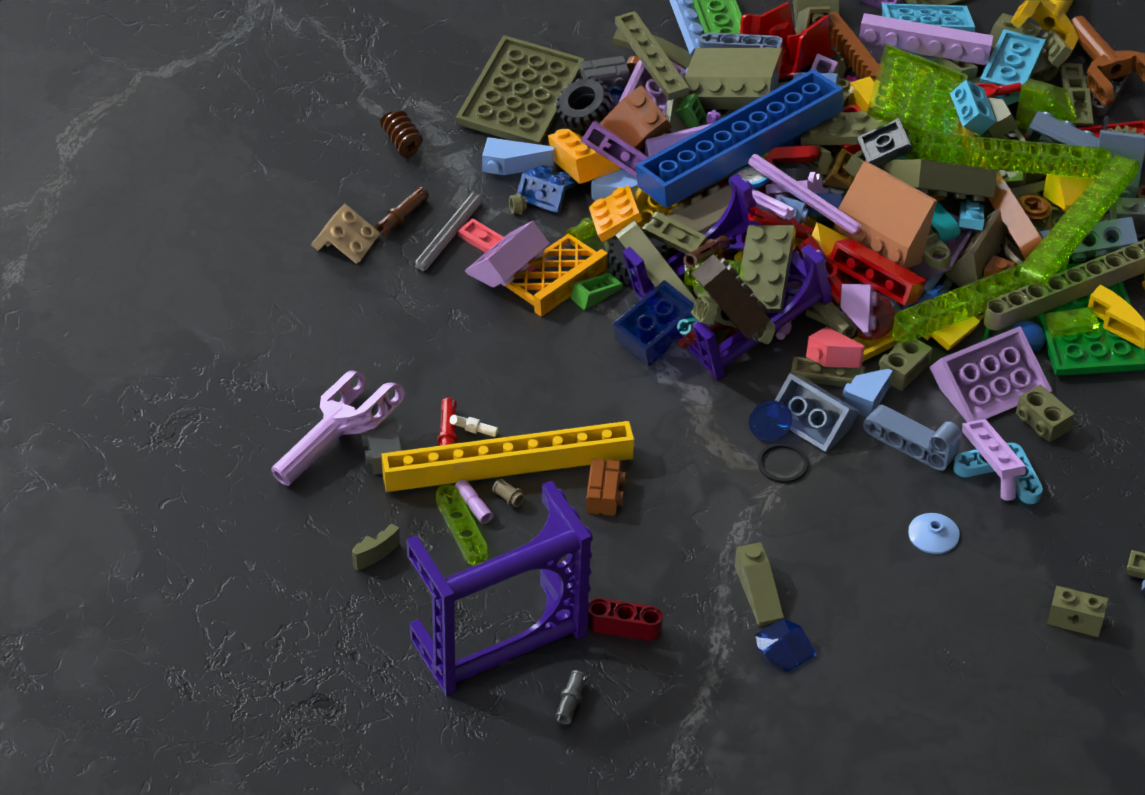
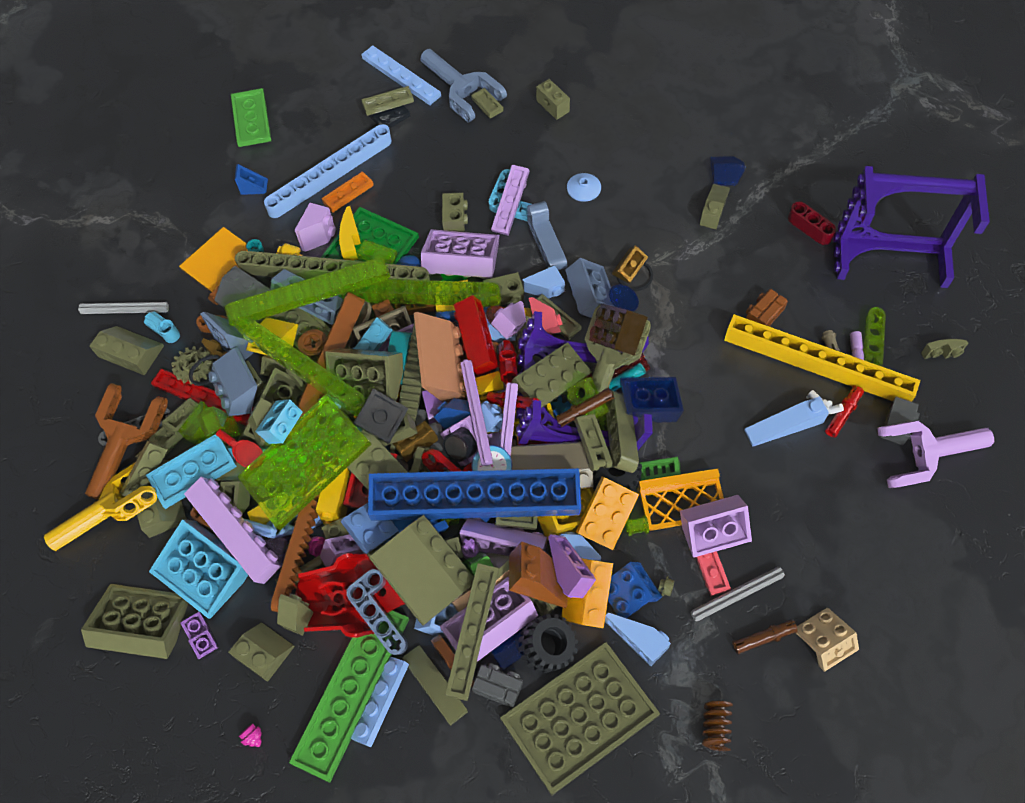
camera: 140 degrees left, 15 degrees up
(498, 390) = (788, 421): none -> light blue slope
(796, 464) = (630, 264): none -> pearl gold slope

